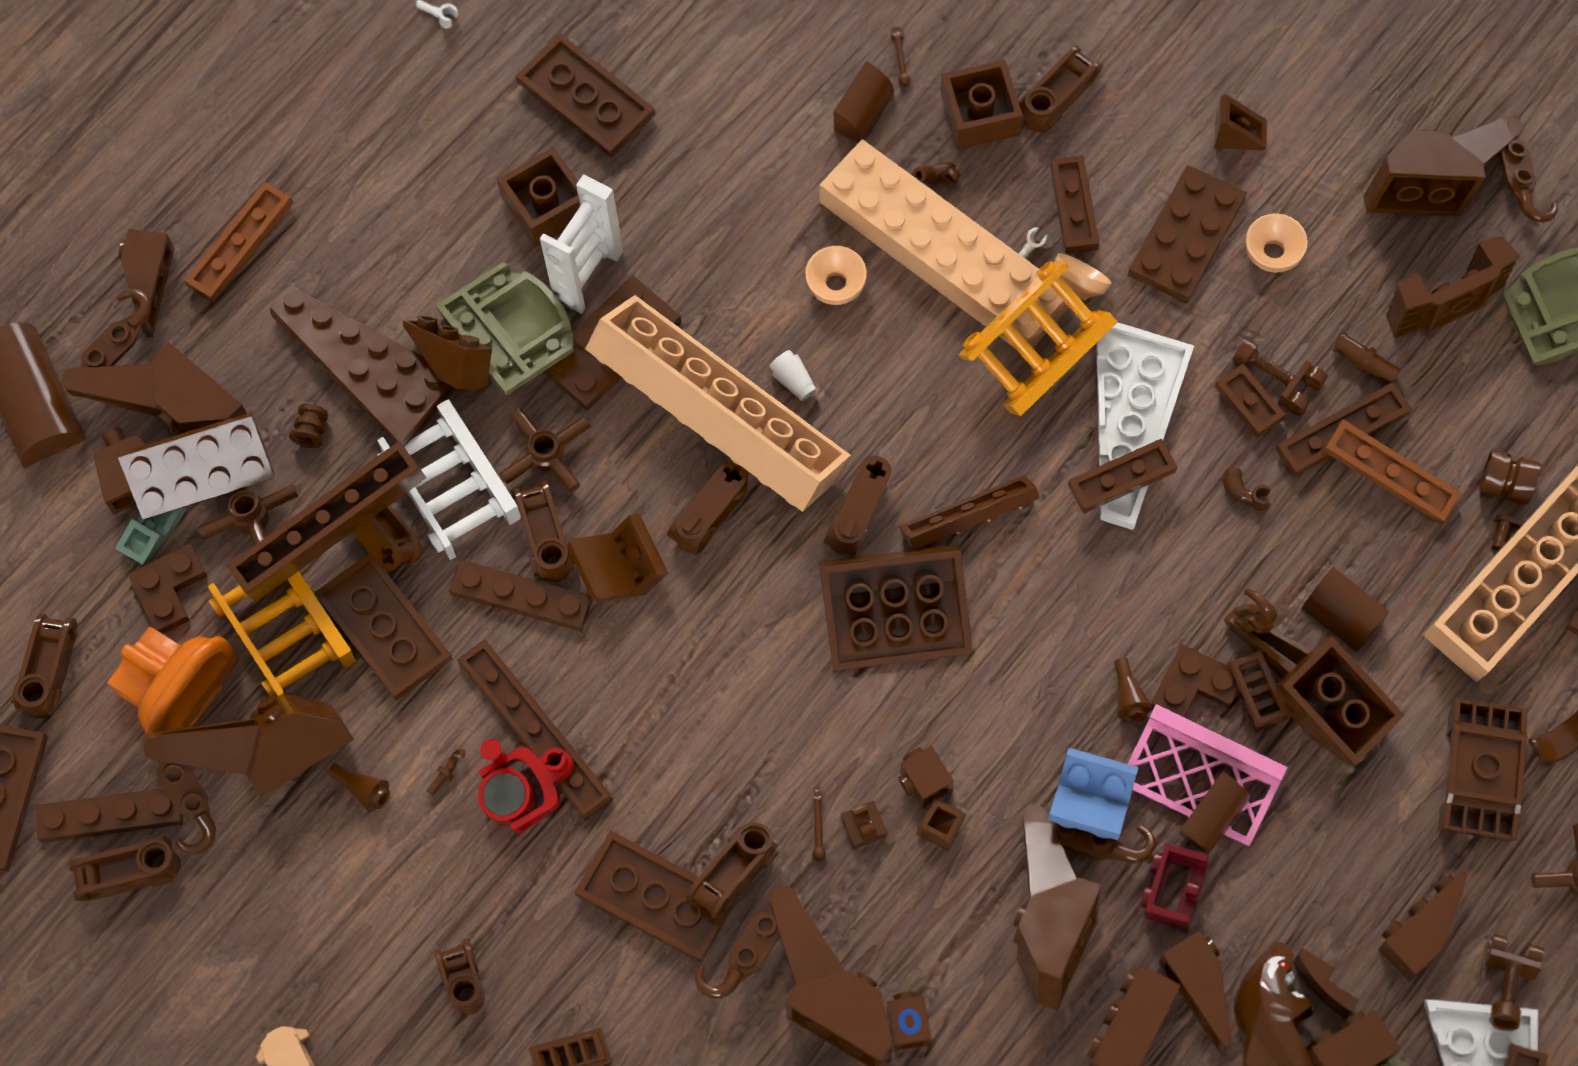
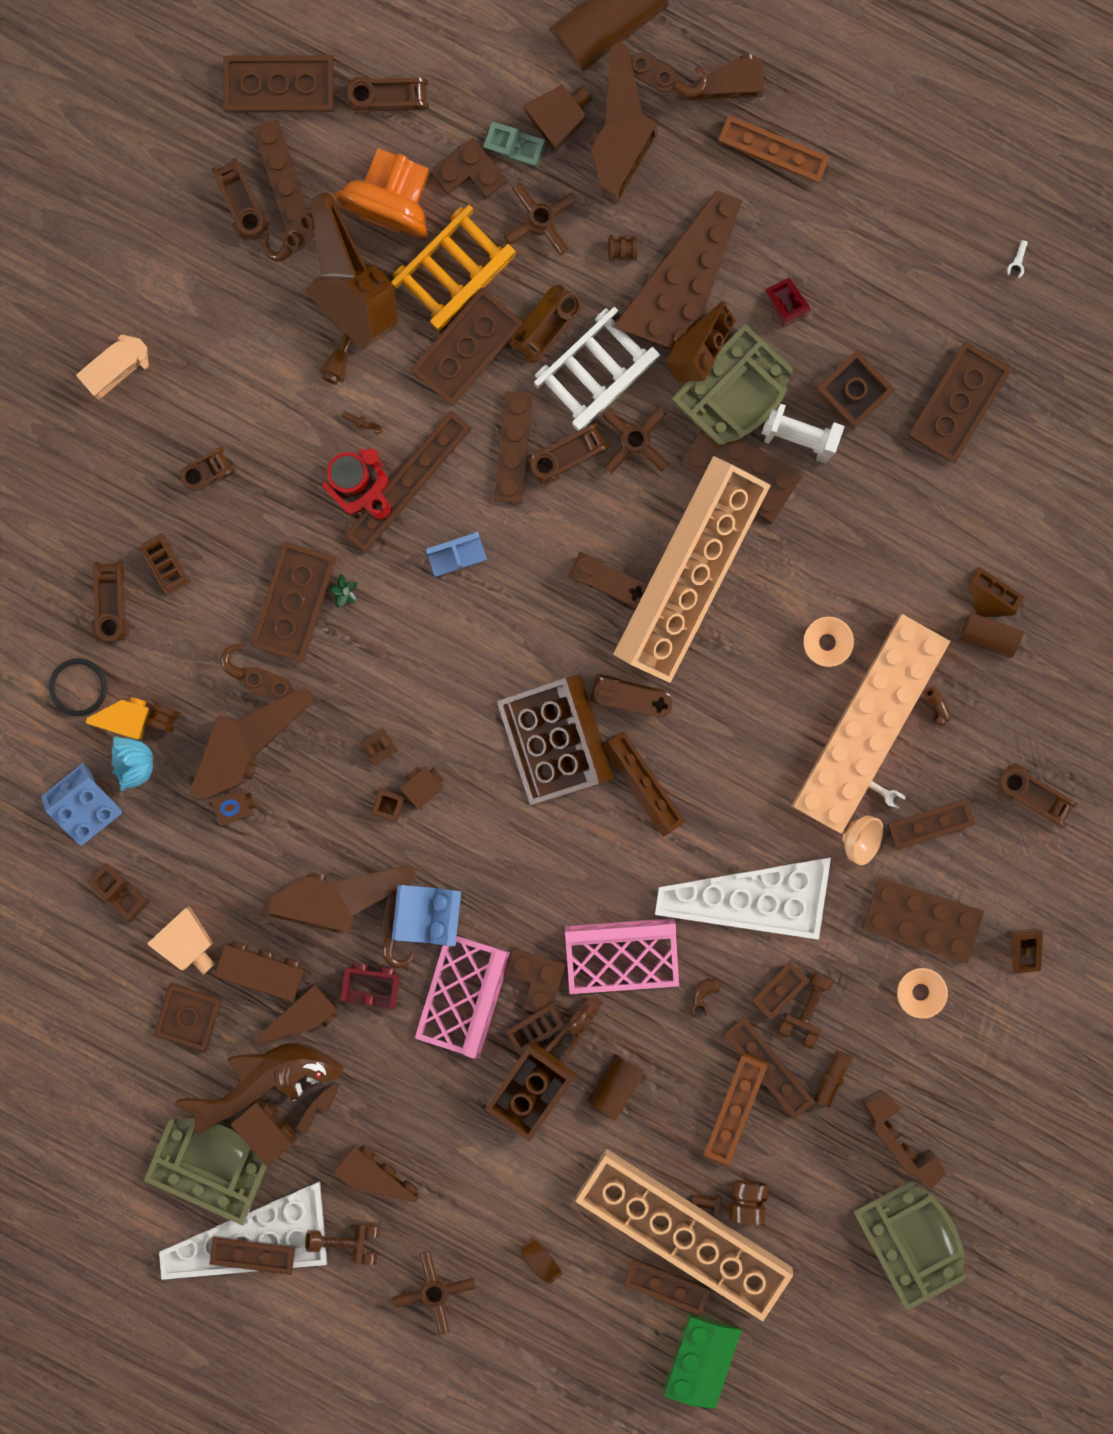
camera: 80 degrees right, 20 degrees up
(196, 465) = (563, 170): plate -> none
(326, 522) = (529, 287): reddish brown brick -> none
(423, 254) = (787, 302): none -> dark red slope
(618, 562) = (549, 517): reddish brown bracket -> none
(639, 685) = (456, 554): none -> medium blue panel
(656, 831) = (343, 591): none -> dark green plant
(733, 869) = (320, 656): reddish brown piece -> none
(793, 375) = (736, 623): white cone -> none
(818, 97) = (992, 596): none -> reddish brown slope
(818, 853) = (351, 717): reddish brown hinge -> none
(897, 35) = (1067, 651): reddish brown hinge -> none
(981, 104) = (1005, 733): reddish brown brick -> none
(1069, 347) = (783, 836): light orange fence -> none
(1122, 476) = (690, 899): reddish brown plate -> none
(1132, 701) = (512, 933): reddish brown cone -> none
(1150, 573) = (621, 932): none -> bright pink fence
(1215, 813) = (430, 1008): reddish brown brick -> none
(1442, 173) = (1008, 1125): reddish brown slope -> none
(1484, 770) = (503, 1207): reddish brown plate -> none

